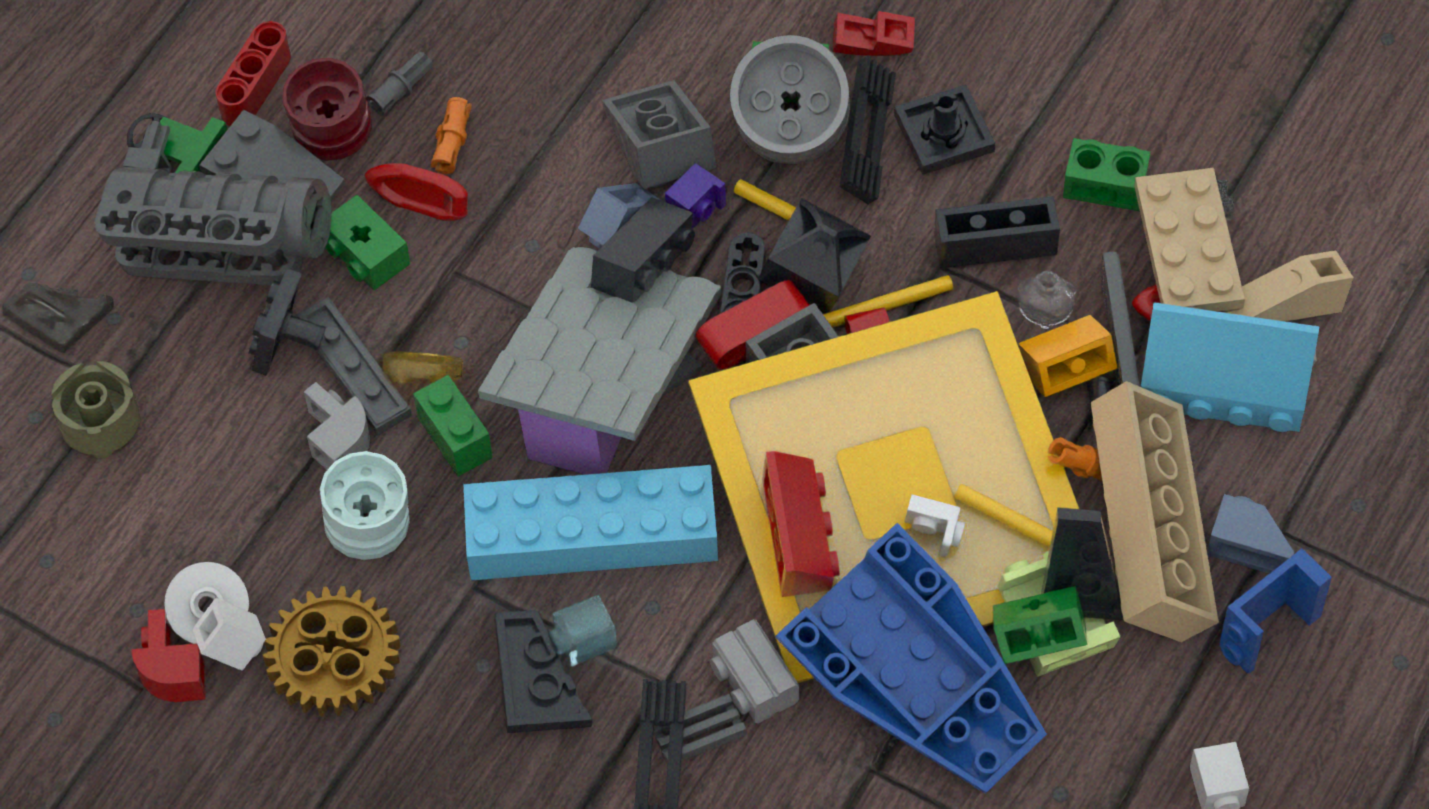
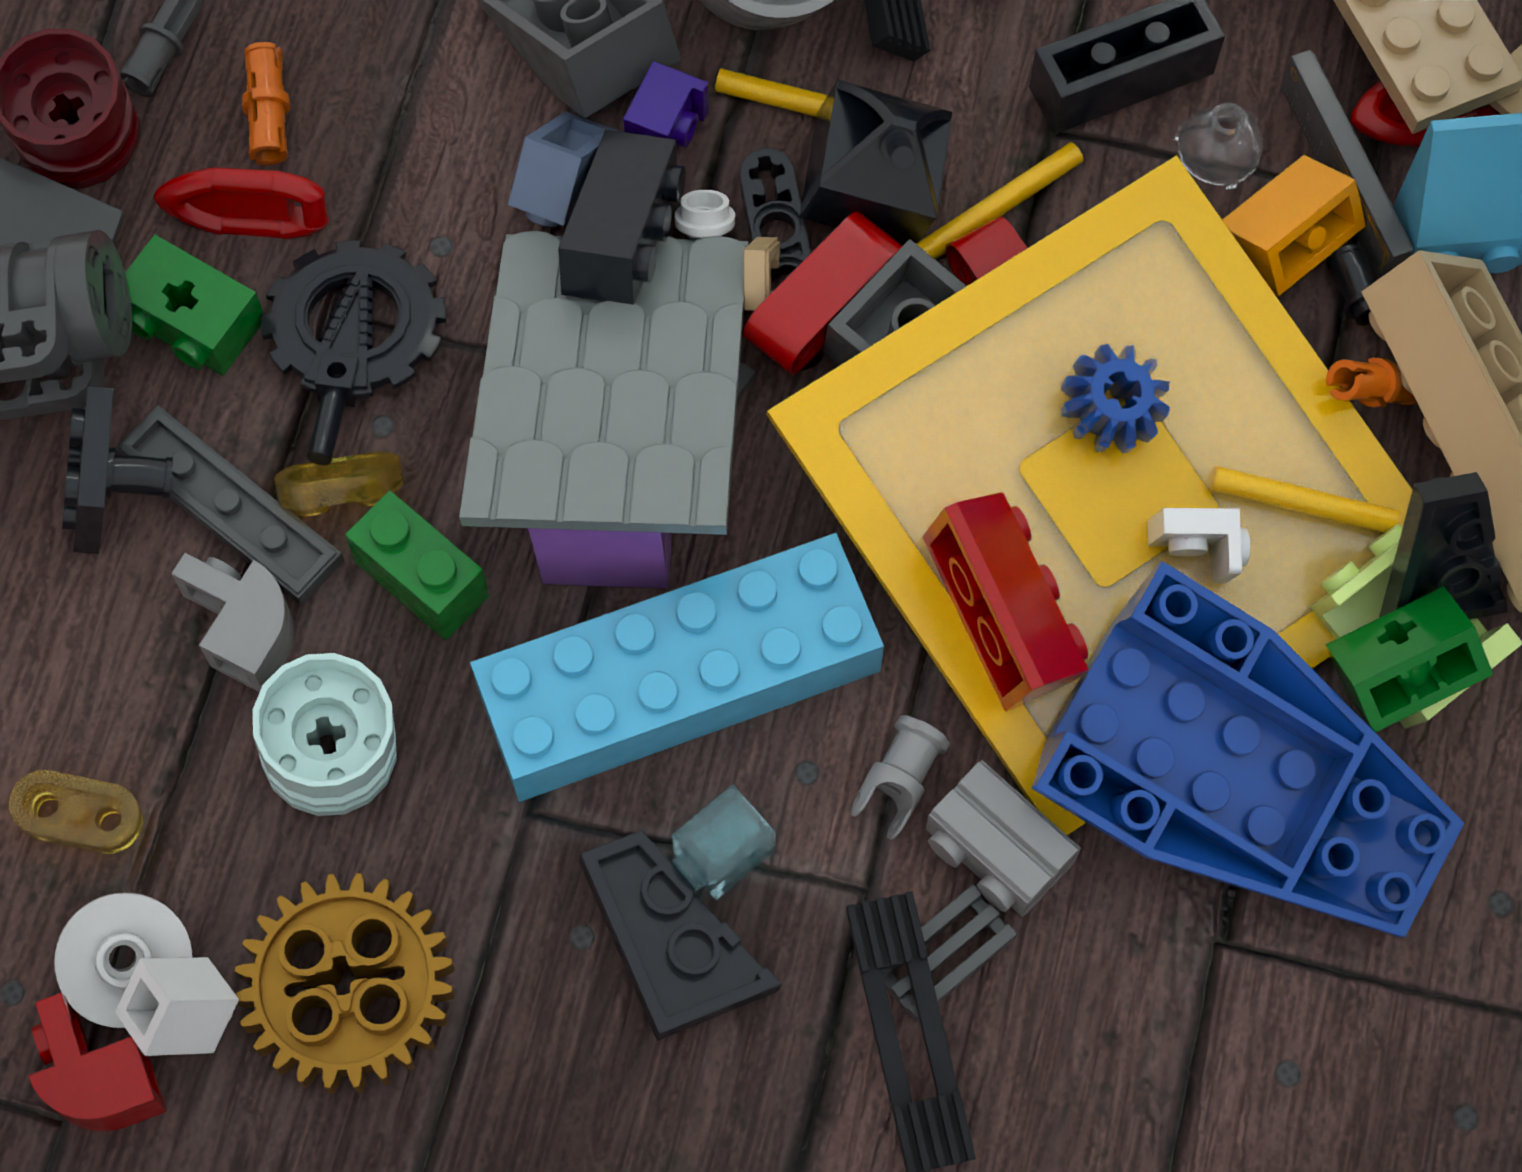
camera: 20 degrees left, 10 degrees up
(209, 515) = (79, 812): none -> clear yellow plate
(452, 294) = (345, 359): none -> black bar
(699, 263) = (704, 214): none -> white plate
(710, 615) = (903, 769): none -> light grey piece
(718, 298) = (759, 259): none -> tan tile
(892, 430) = (1124, 380): none -> blue gear

